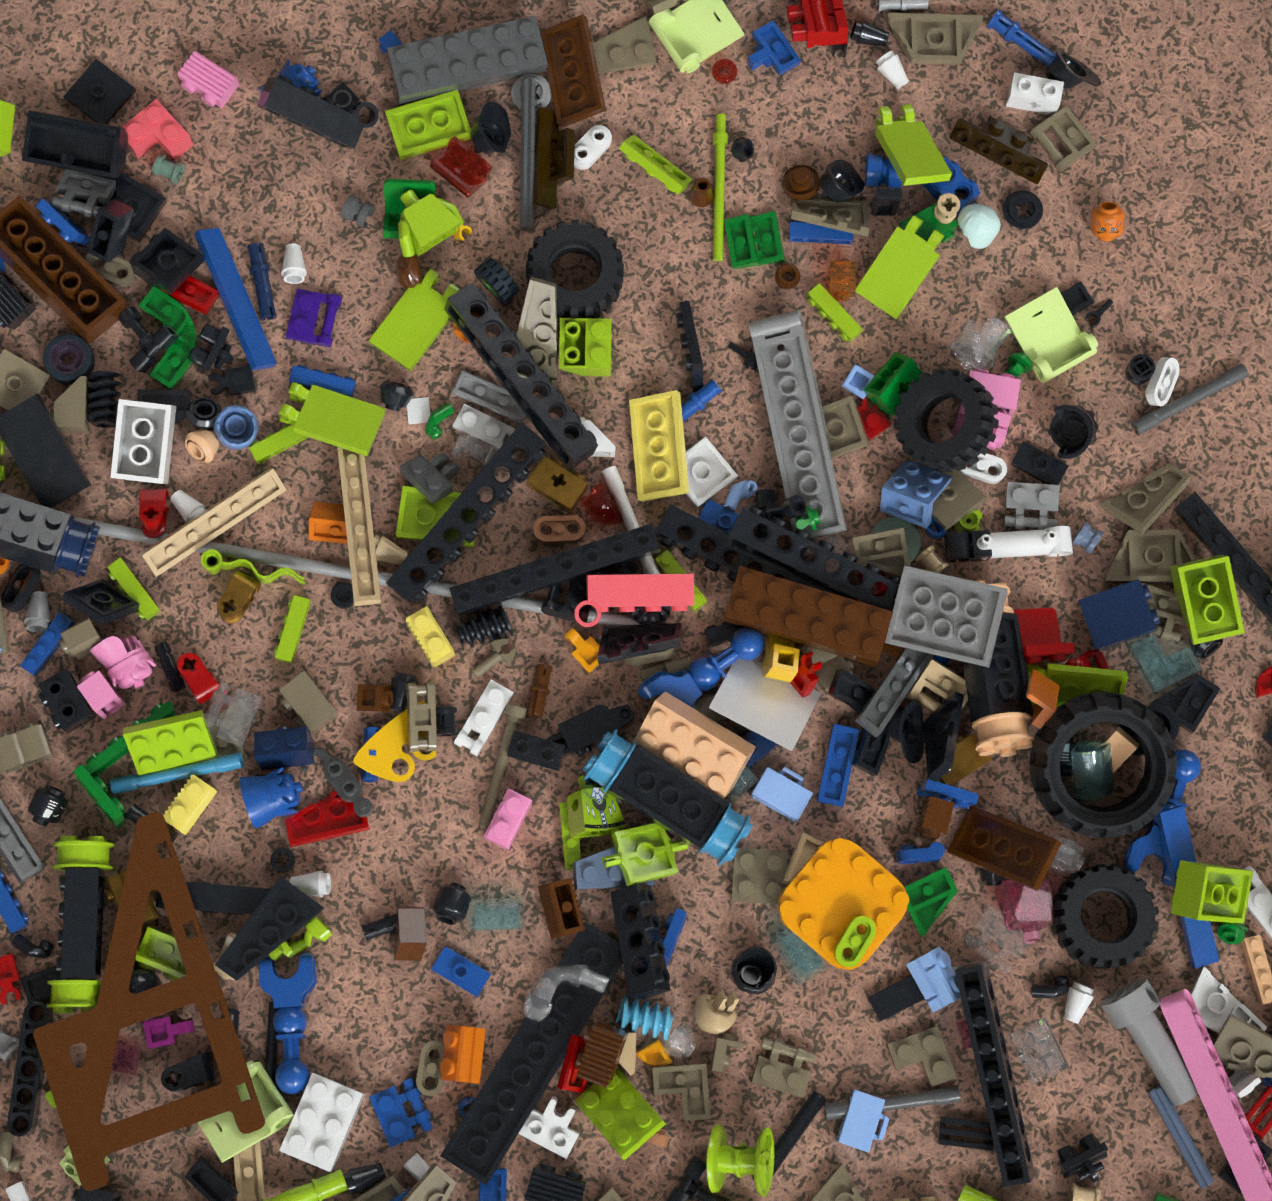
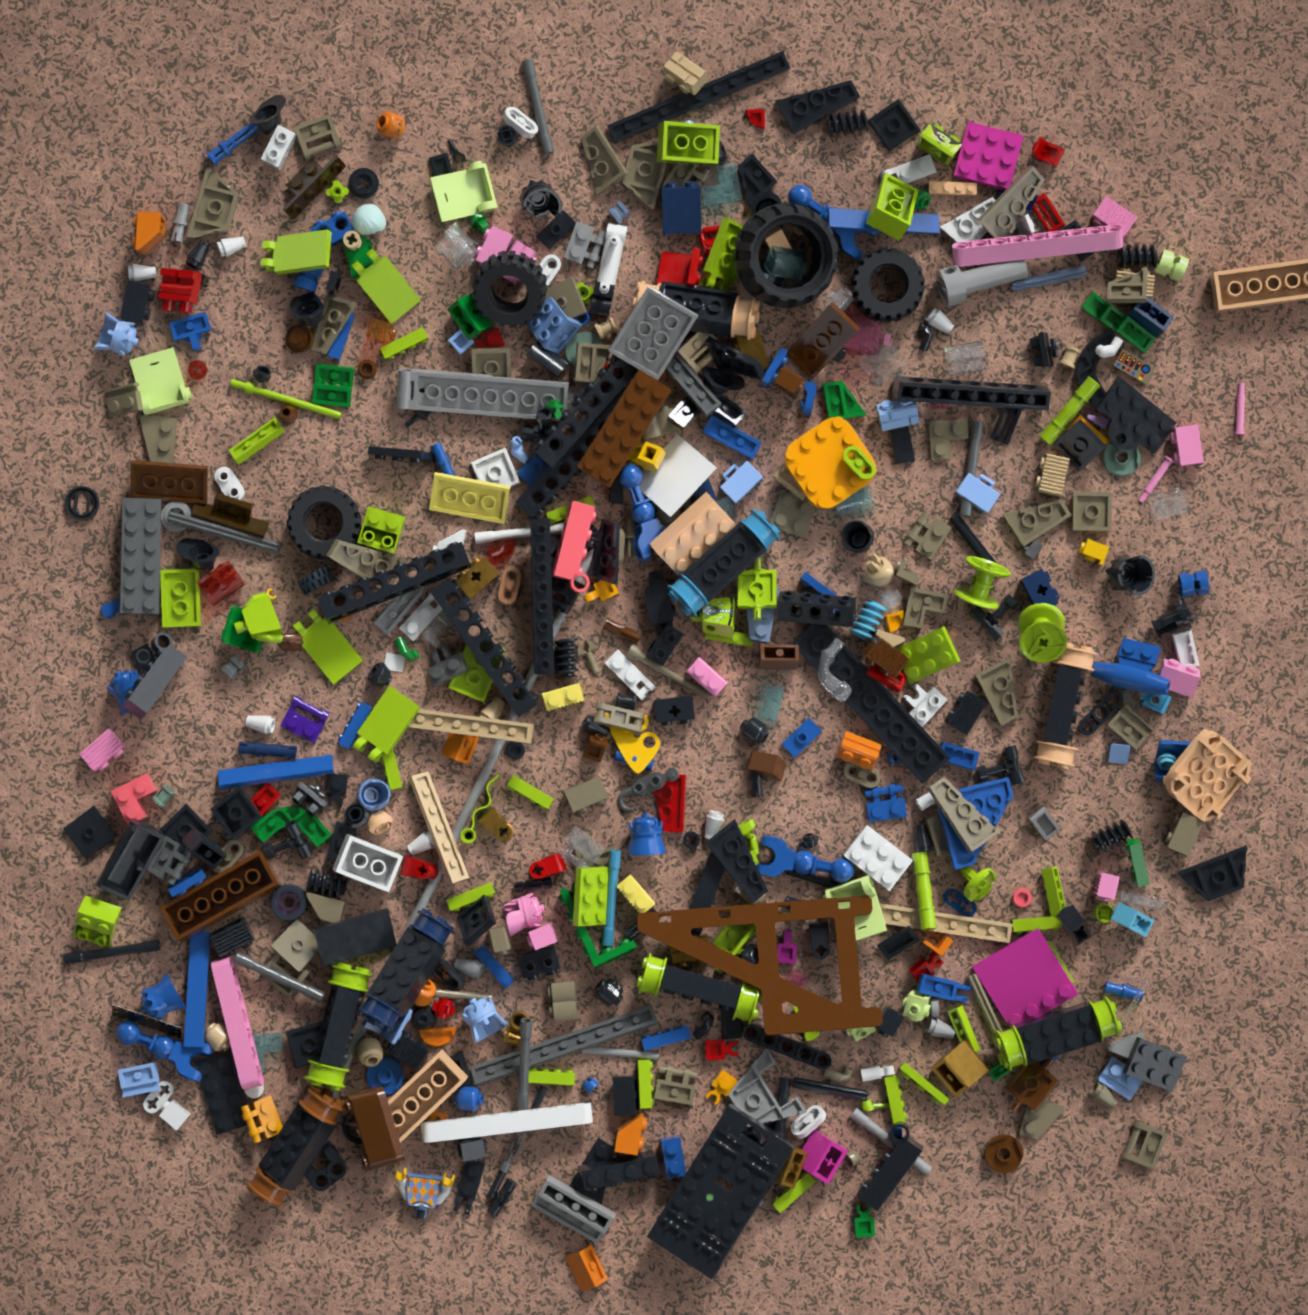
camera: 60 degrees left, 10 degrees up
(283, 748) = (614, 819): dark blue brick -> none
(322, 1021) = (809, 840): none -> black plate
(451, 772) = (685, 705): none -> black brick
(806, 678) = (664, 441): red plate -> none
(869, 498) = (547, 359): none -> black brick
(994, 183) = (342, 191): none -> lime plate
(1045, 696) = (726, 282): orange panel -> none

